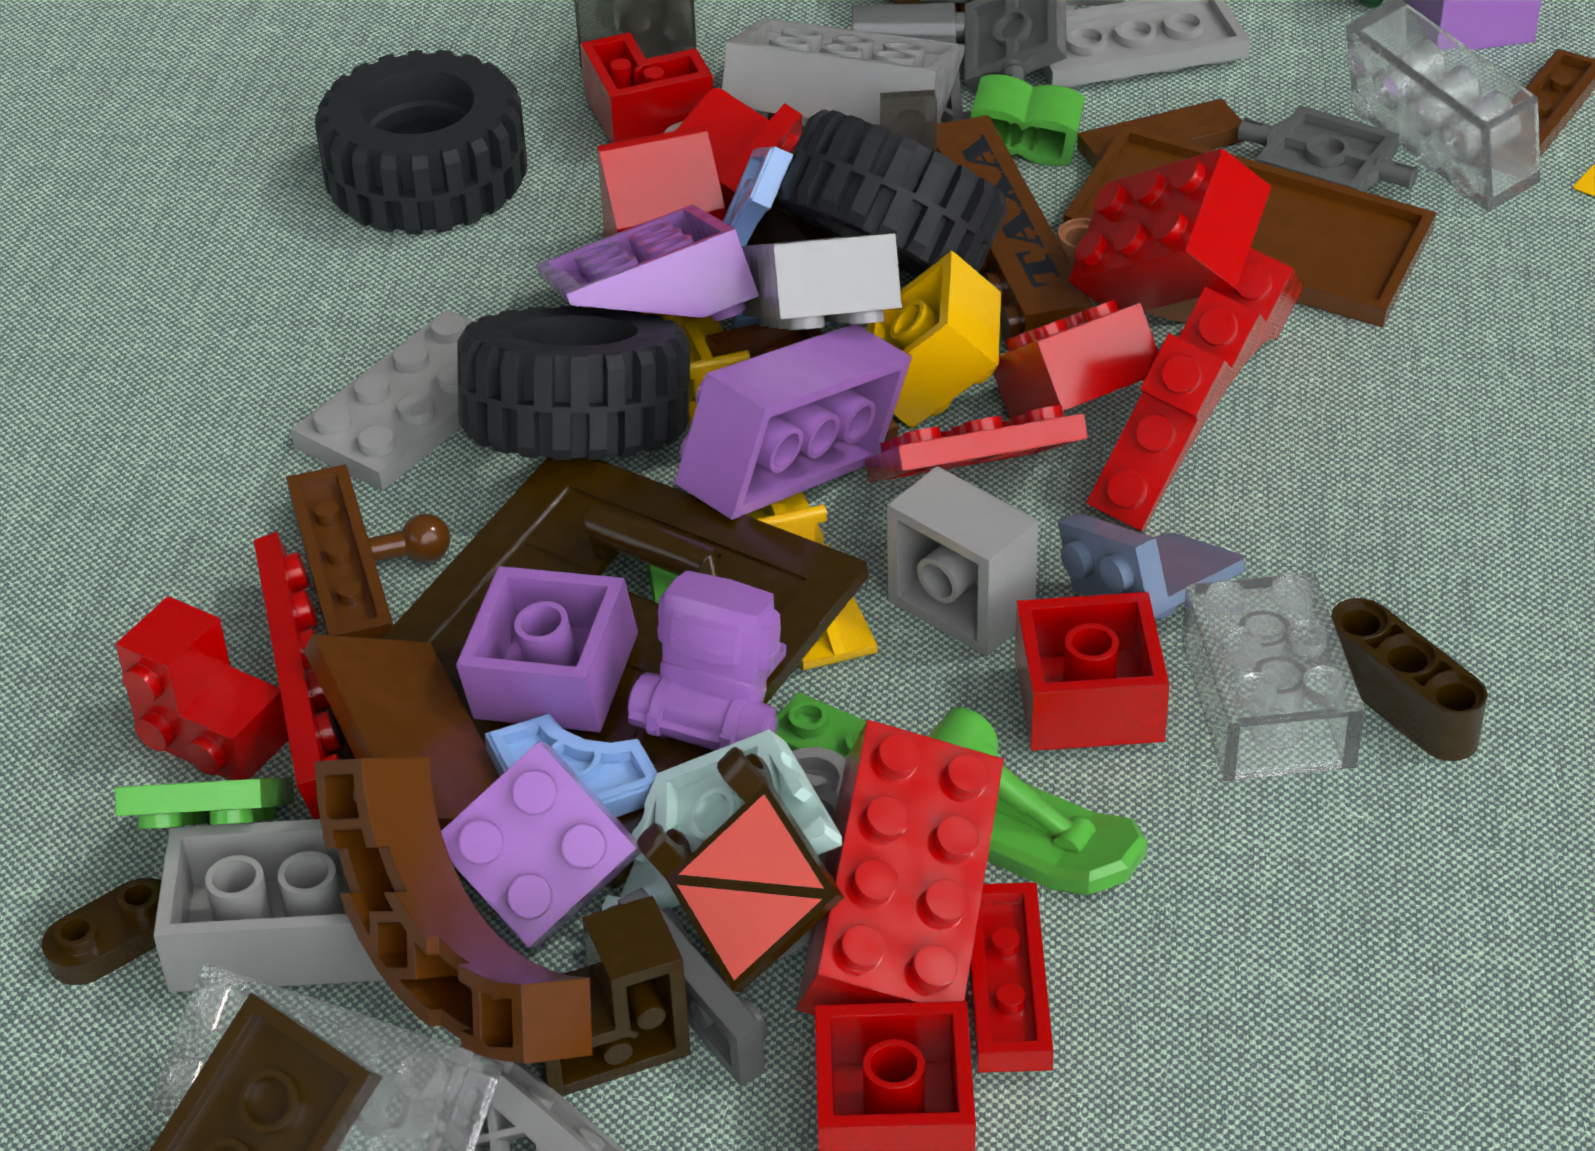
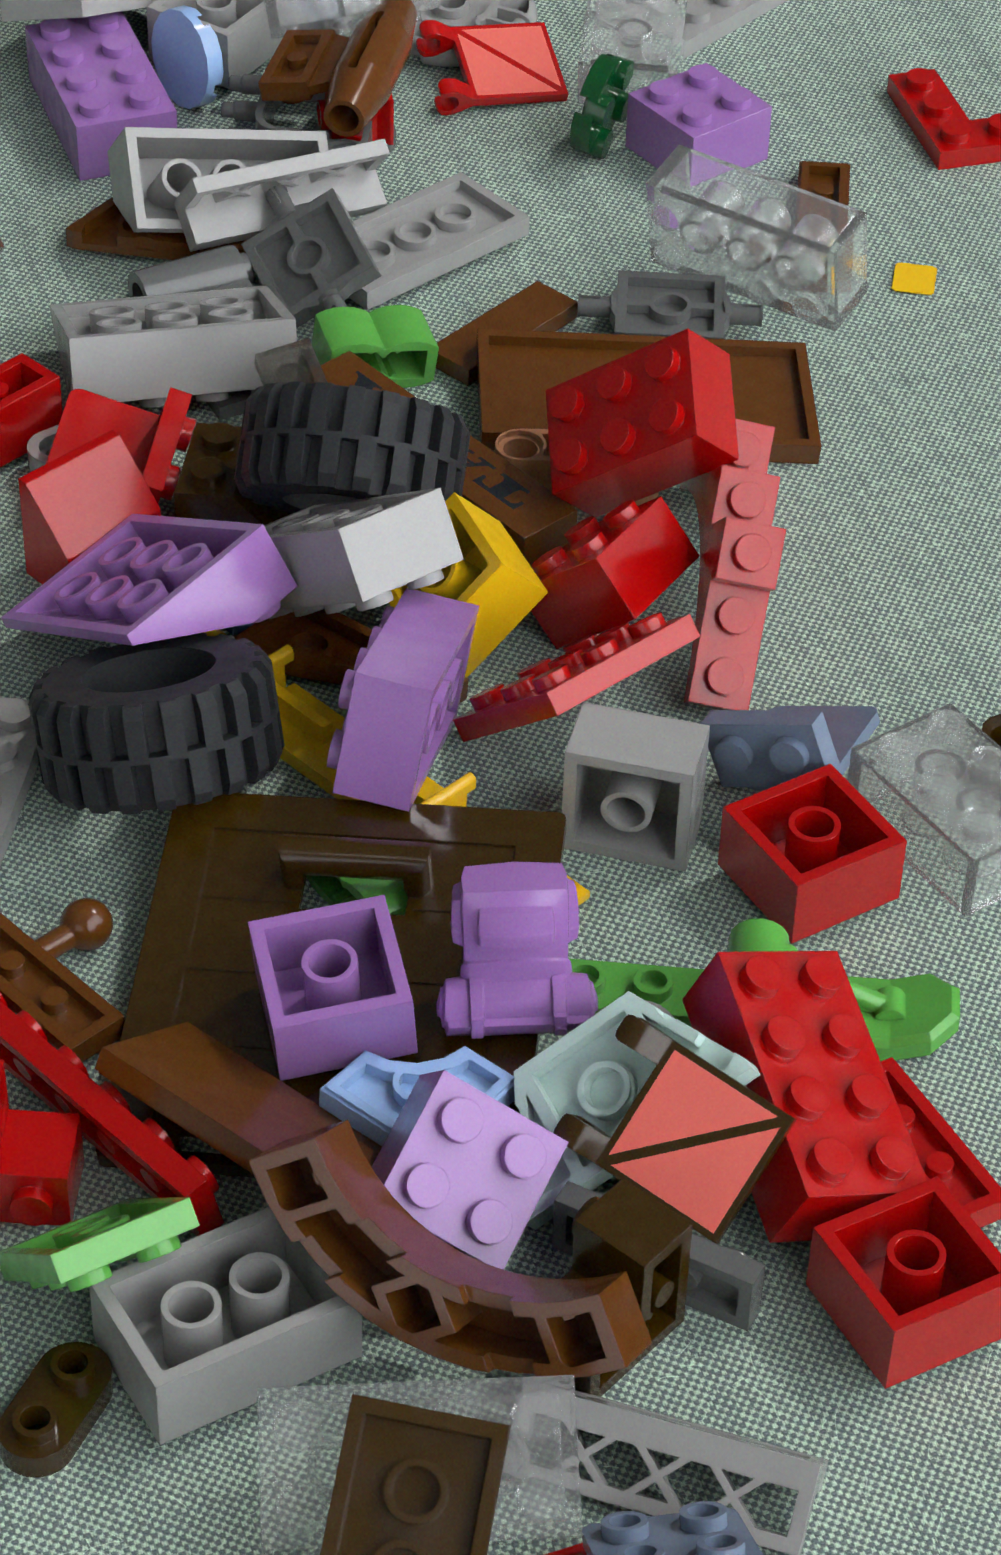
camera: 30 degrees left, 0 degrees up
(757, 190) = (212, 475): light blue tile -> none

